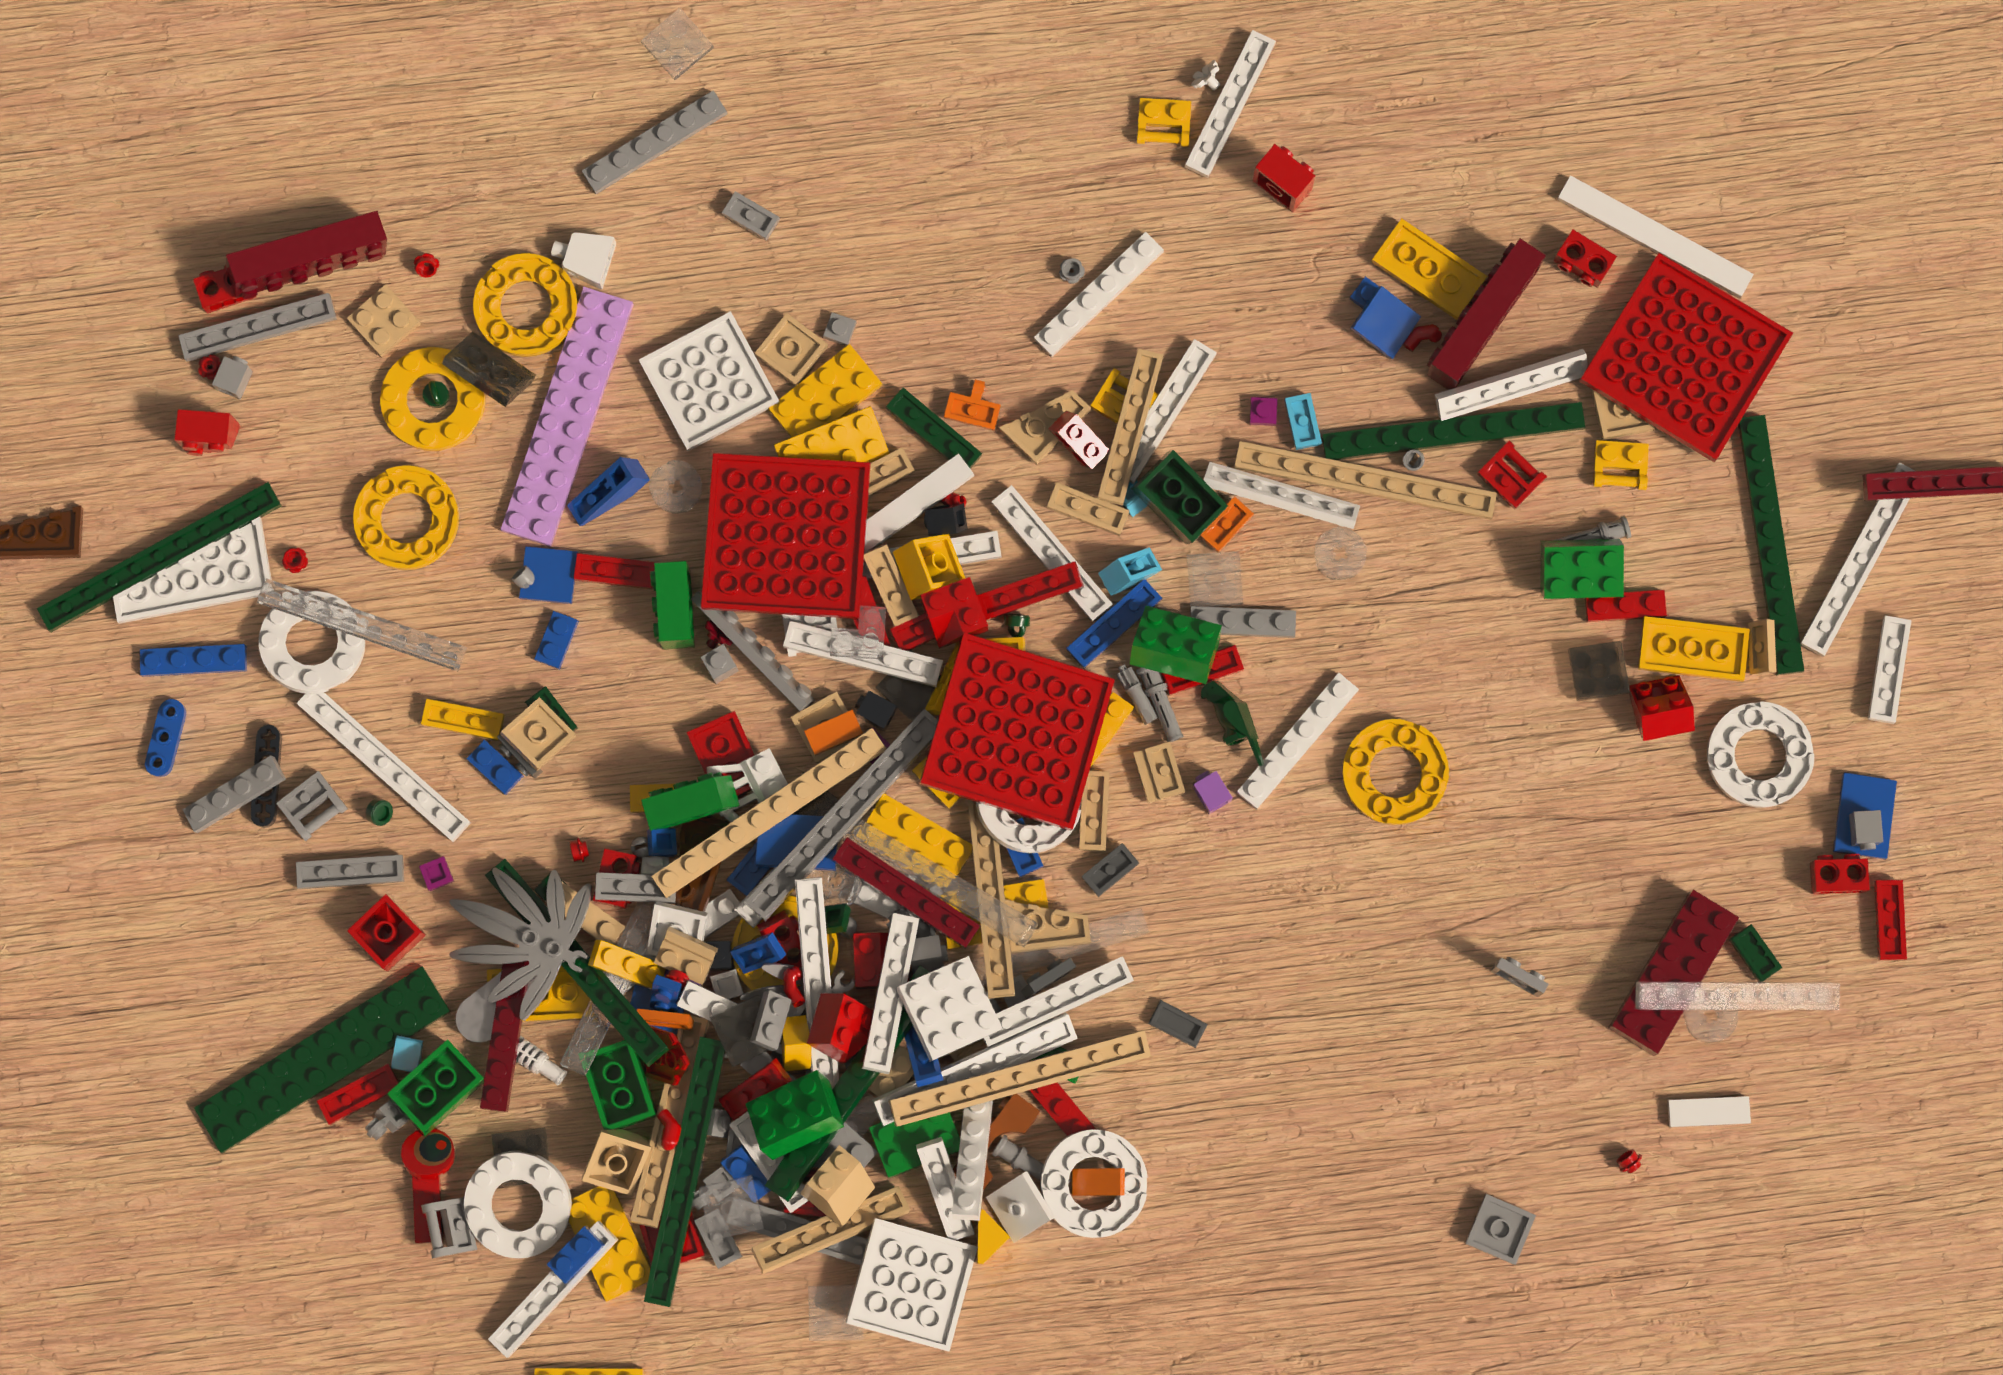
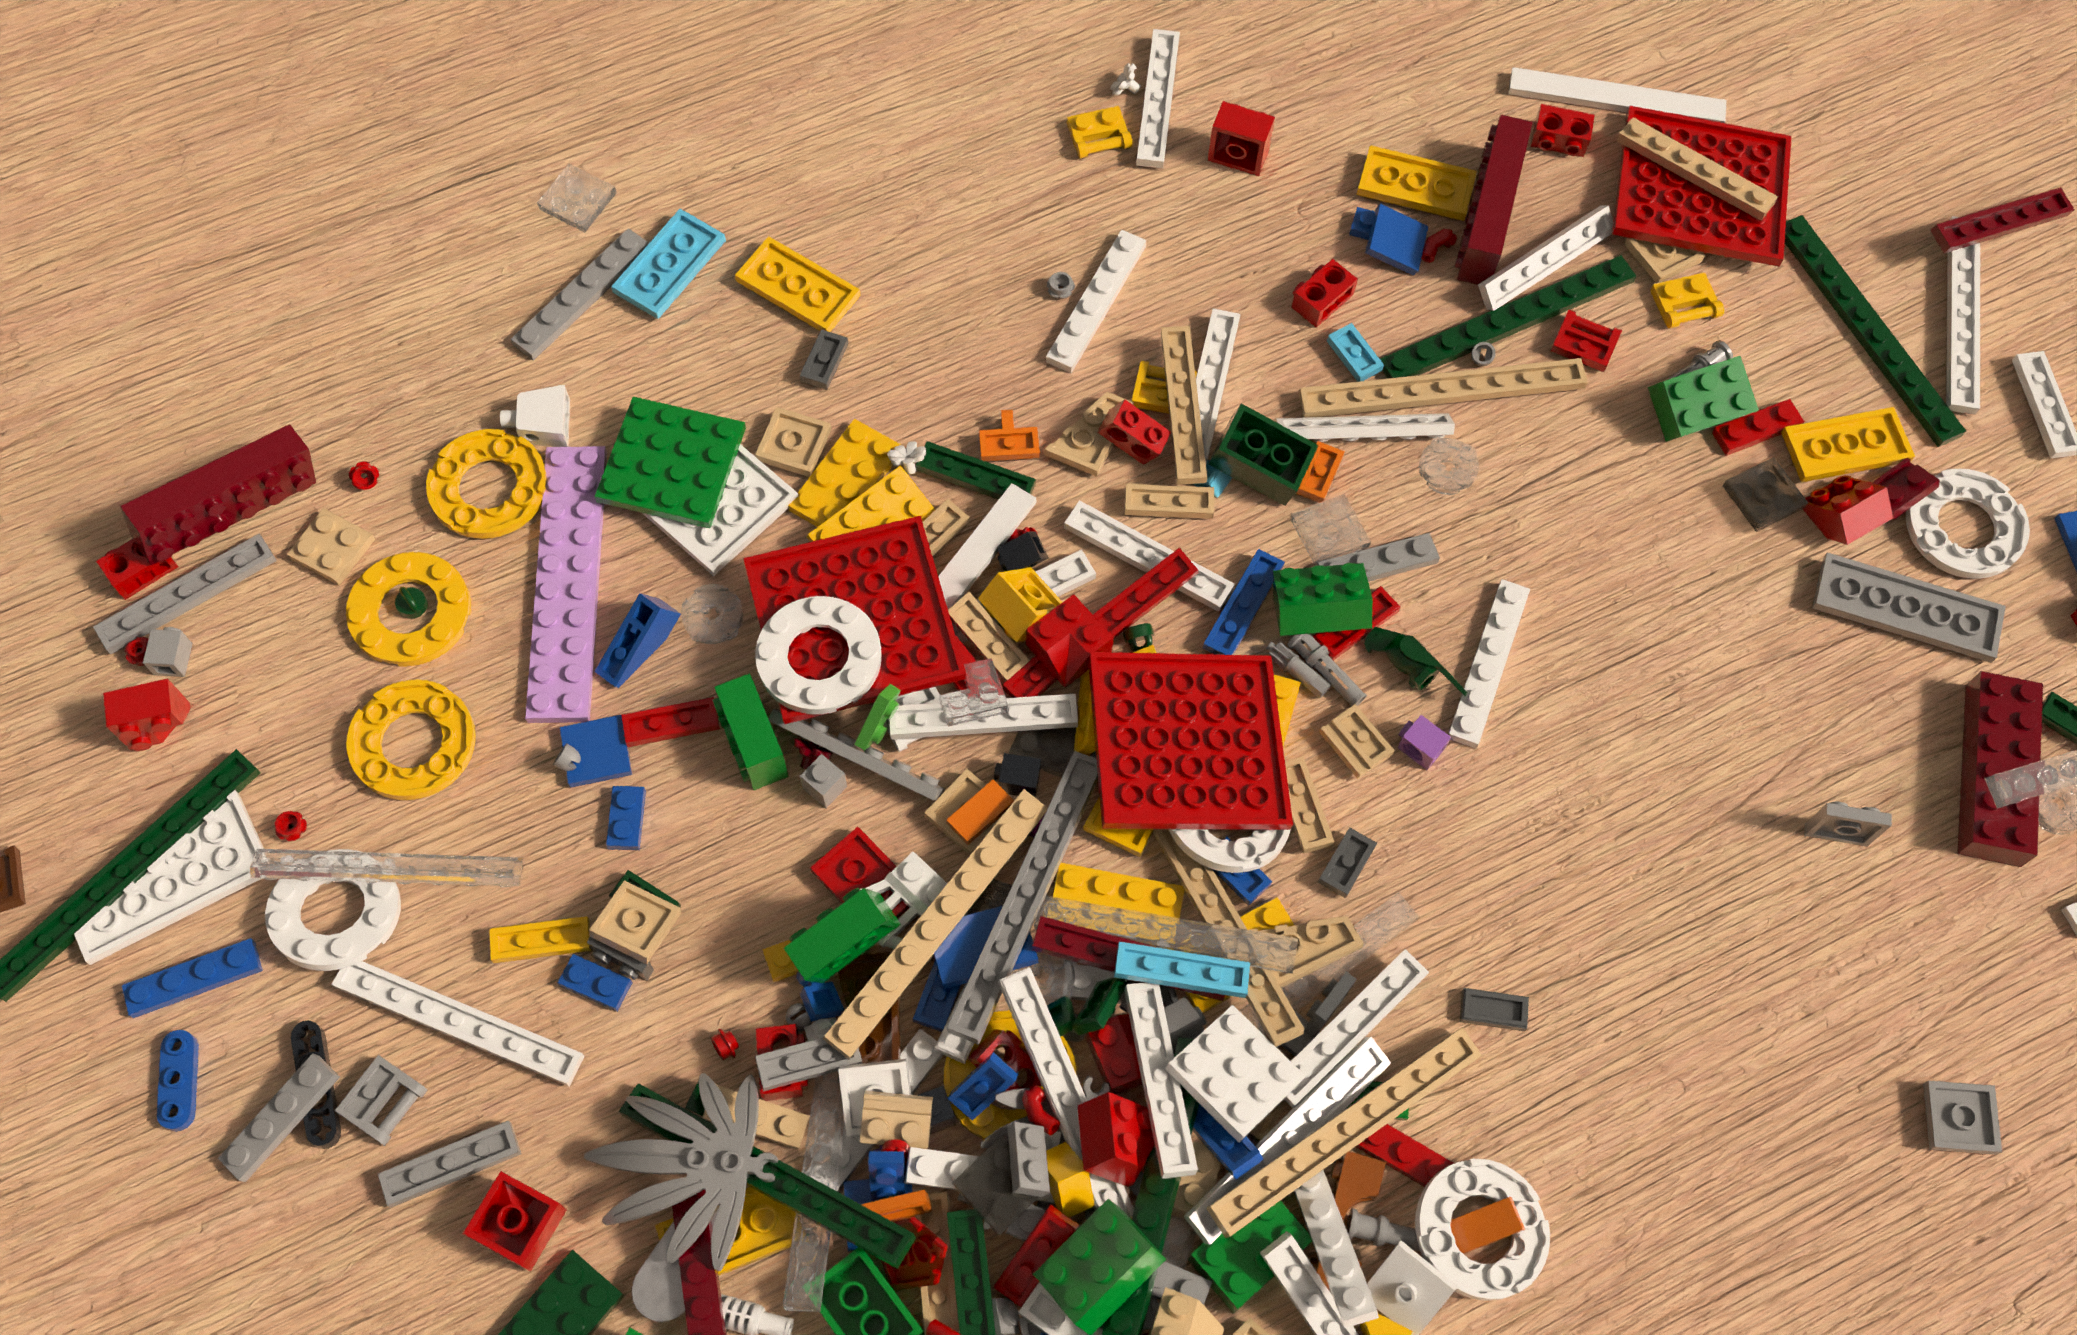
camera: 25 degrees left, 15 degrees down
(379, 812) = (467, 1079): dark green tile -> none
(436, 873) = (559, 1130): magenta plate -> none
(488, 369) = (463, 555): clear smoke plate -> none
(624, 964) = (824, 1155): yellow plate -> none
(682, 338) = (670, 462): none -> green plate
(727, 984) = (956, 1140): white plate -> none
(738, 138) = (668, 263): none -> medium azure plate
(746, 598) = (826, 694): none -> white plate
(750, 216) = (706, 330): light grey plate -> none
(783, 626) = (883, 708): none -> bright green plate
(839, 329) = (838, 409): light grey plate -> none
(842, 196) = (797, 285): none -> yellow plate
(842, 278) = (824, 359): none -> dark grey plate
(869, 920) = (1099, 1005): none -> dark green plate
(880, 397) = (907, 456): none -> white plant
(938, 917) = (1182, 969): none -> medium azure plate
(1129, 571) = (1237, 547): medium azure slope -> none
(1263, 411) = (1310, 357): magenta plate -> none
(1302, 360) = (1327, 295): none -> red brick
(1403, 735) = (1625, 624): yellow plate -> none
(1629, 1161) = (2060, 989): red plate -> none
(1671, 811) = (1909, 607): none -> light grey plate
(1683, 342) = (1697, 168): none -> tan plate
(1717, 705) = (1907, 485): none -> dark red plate
(1762, 647) = (1916, 420): tan plate -> none

